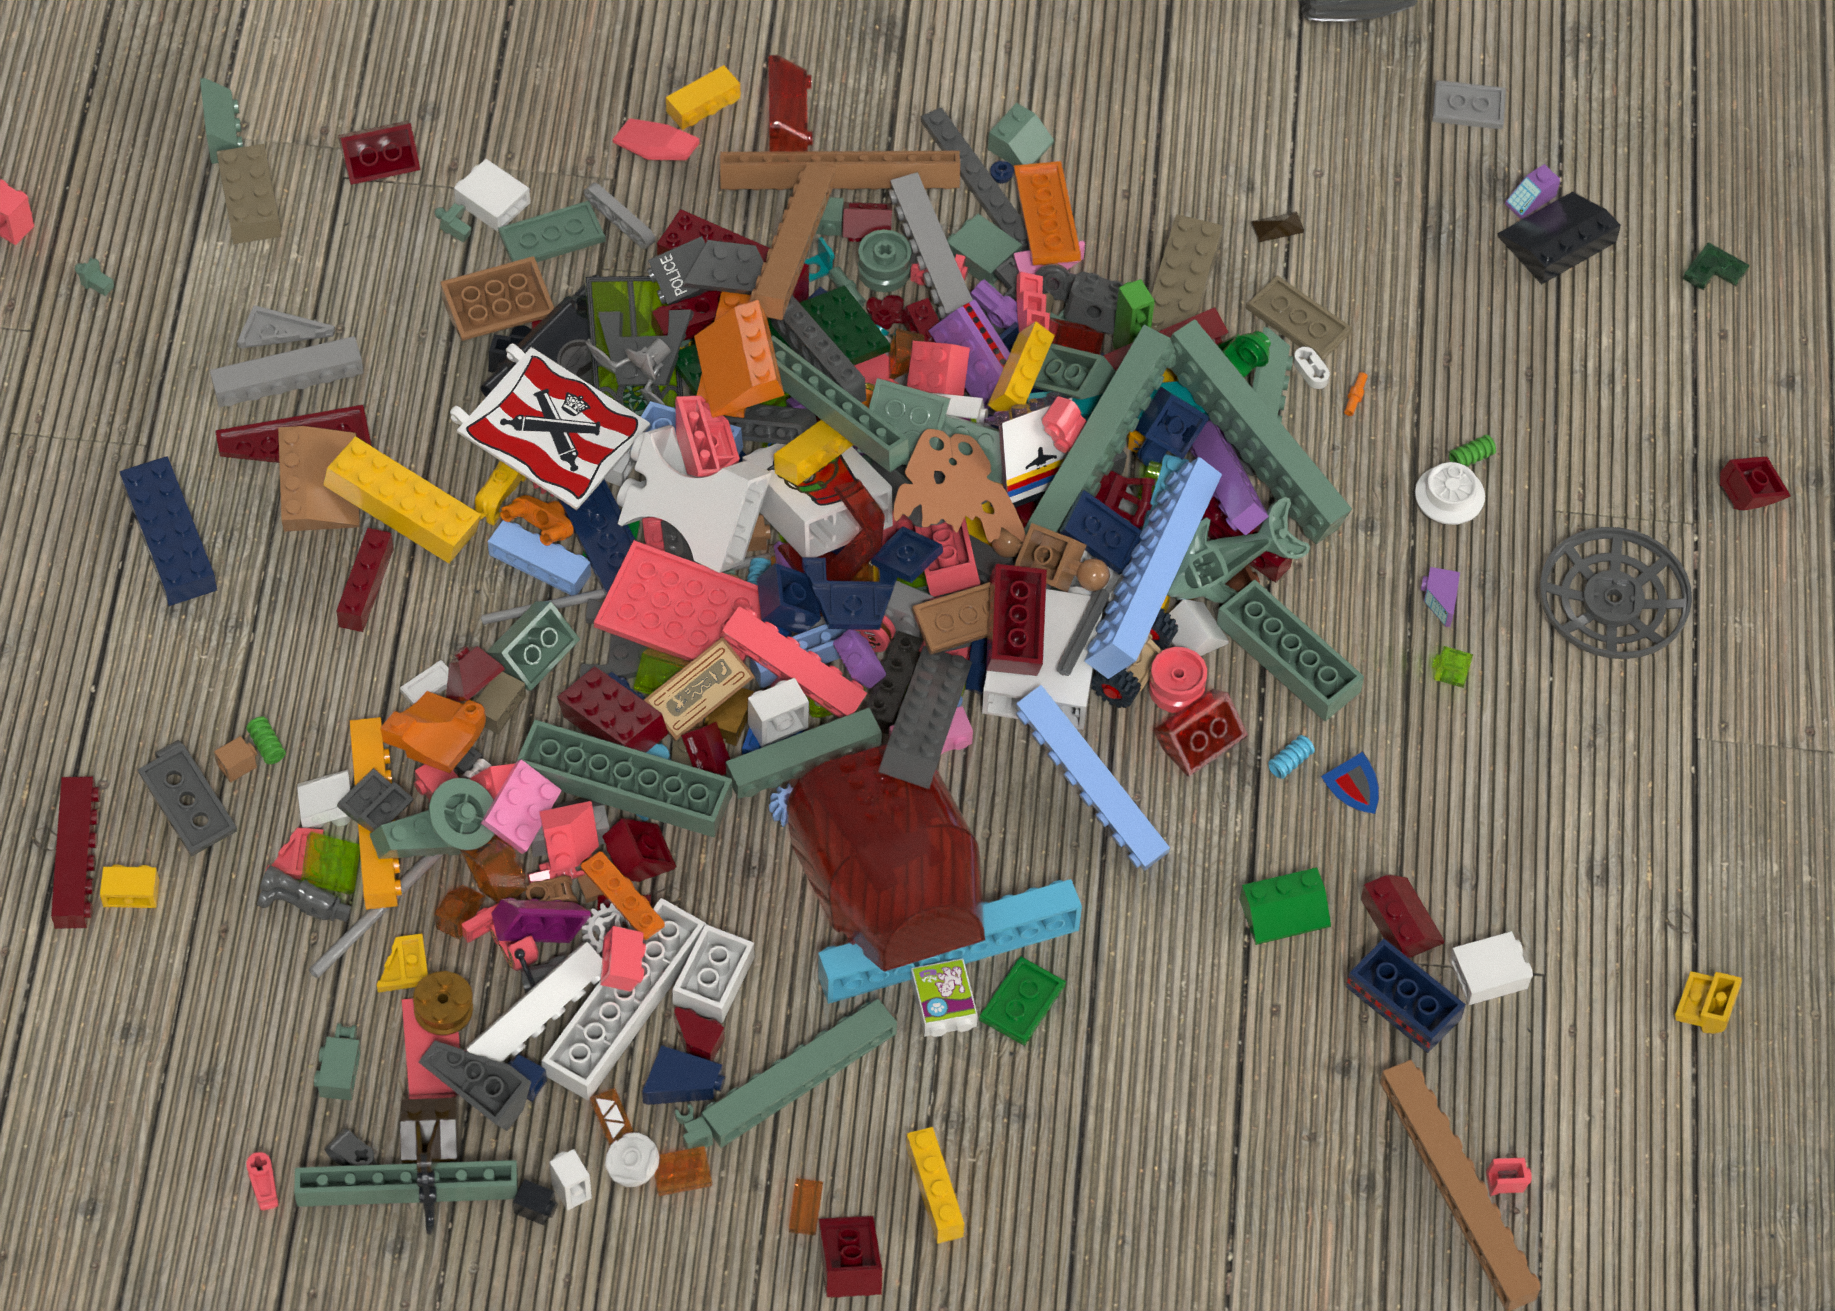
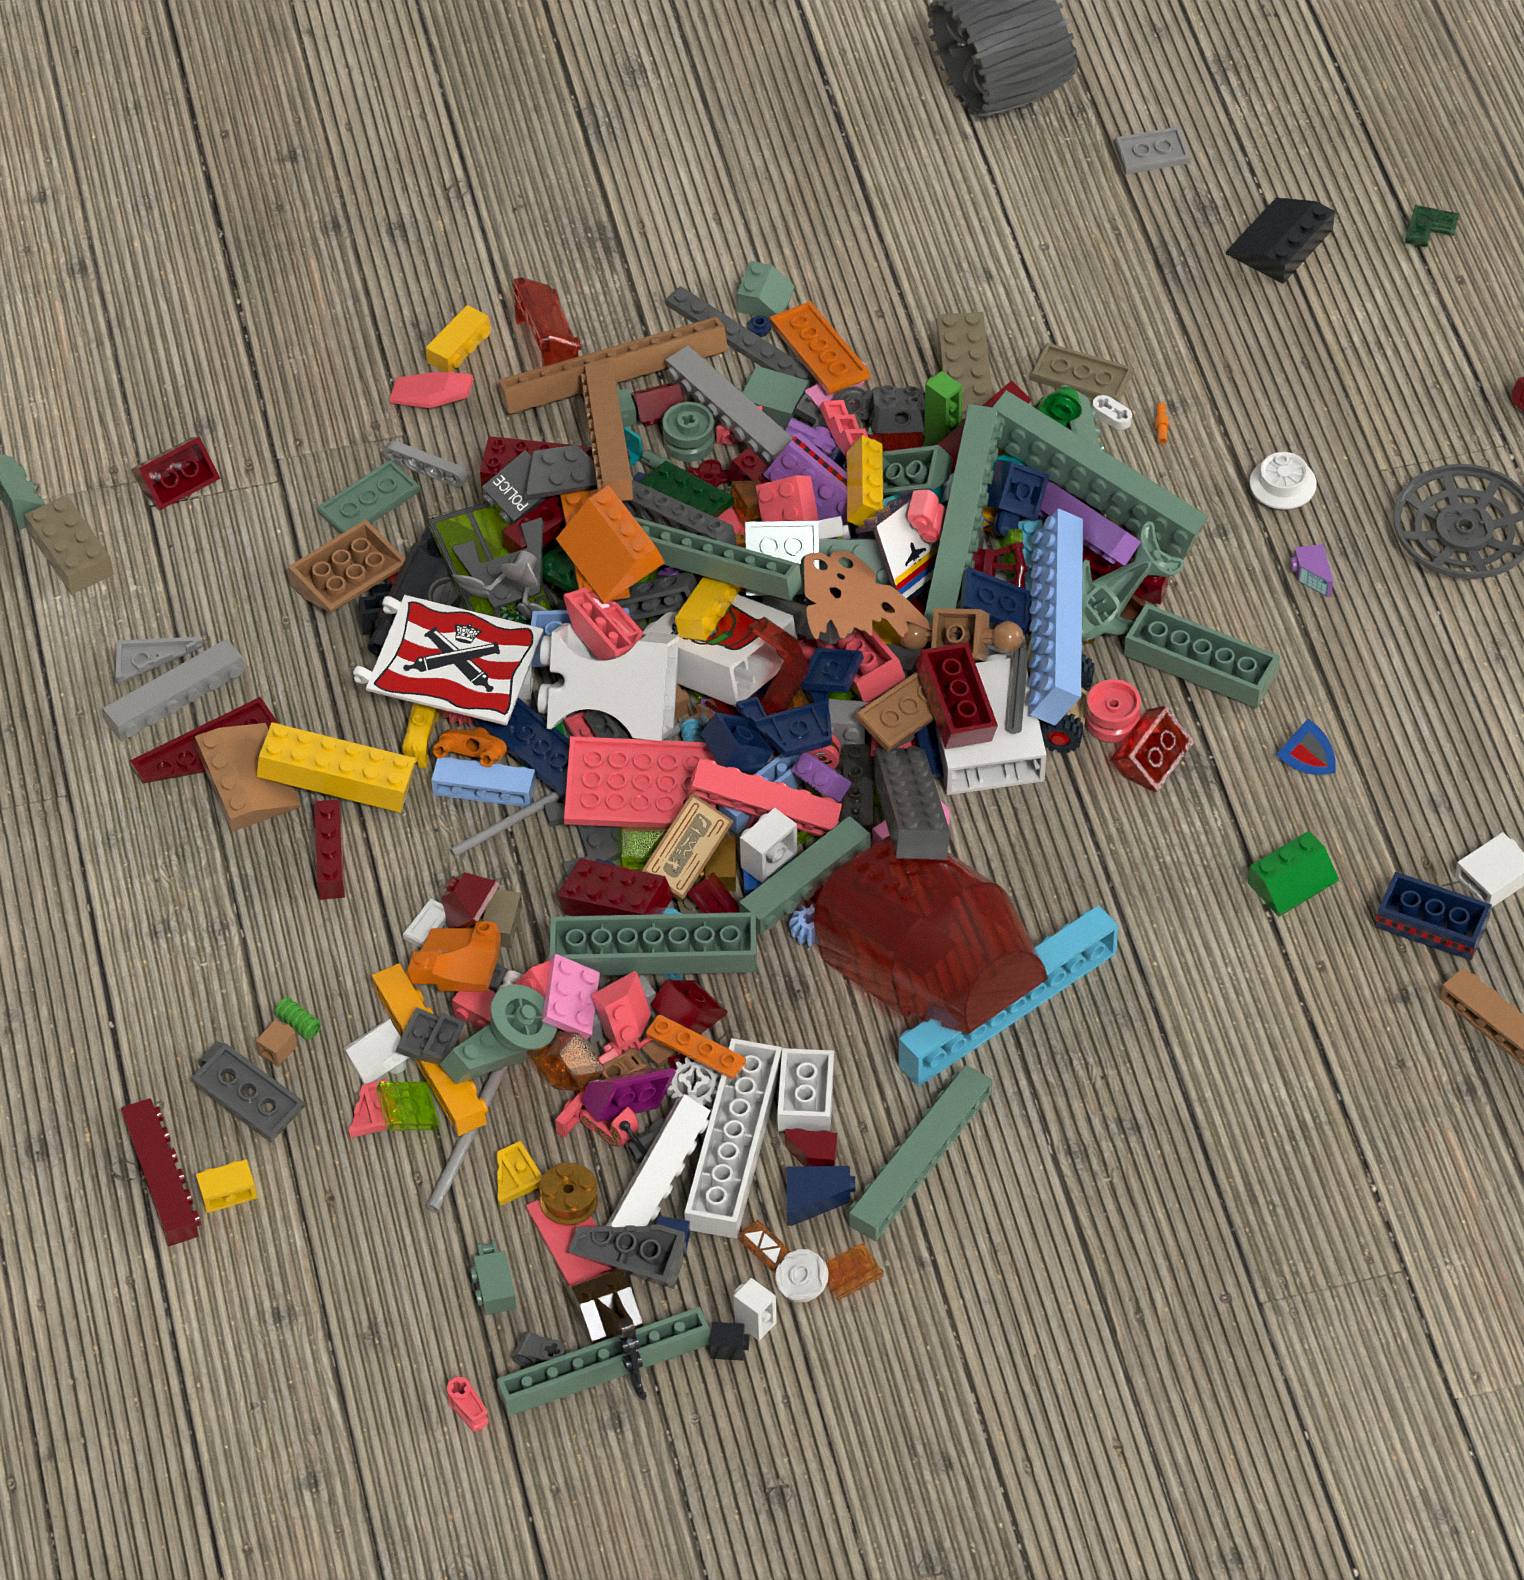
camera: 15 degrees left, 5 degrees down
(168, 531) = (124, 862): dark blue brick -> none
(305, 896) = (402, 1144): dark grey piece -> none
(451, 221) = (271, 515): sand green piece -> none
(456, 909) = (543, 1111): clear orange slope -> none
(492, 195) = (298, 480): white brick -> none
(534, 644) = (513, 855): sand green slope -> none
(622, 958) = (722, 1099): coral brick -> none
(696, 1131) = (849, 1233): sand green piece -> none
(806, 1206) = (976, 1266): clear orange tile -> none
(850, 1256) = (1038, 1296): dark red slope -> none
(935, 1185) = (1086, 1209): yellow brick -> none
(944, 998) = (1022, 1047): brick -> none
(1022, 1001) = (1093, 1028): green tile -> none
(1092, 778) = (1077, 815): light blue brick -> none
(1196, 628) = (1109, 662): white slope -> none
(1277, 226) = (1028, 302): dark brown slope -> none
(1291, 756) = (1241, 746): medium azure piece -> none
(1400, 915) = (1395, 850): dark red slope -> none
(1452, 666) = (1350, 627): clear neon green brick -> none
(1473, 451) = (1288, 439): bright green piece -> none
(1533, 191) = (1243, 206): medium lavender slope -> none

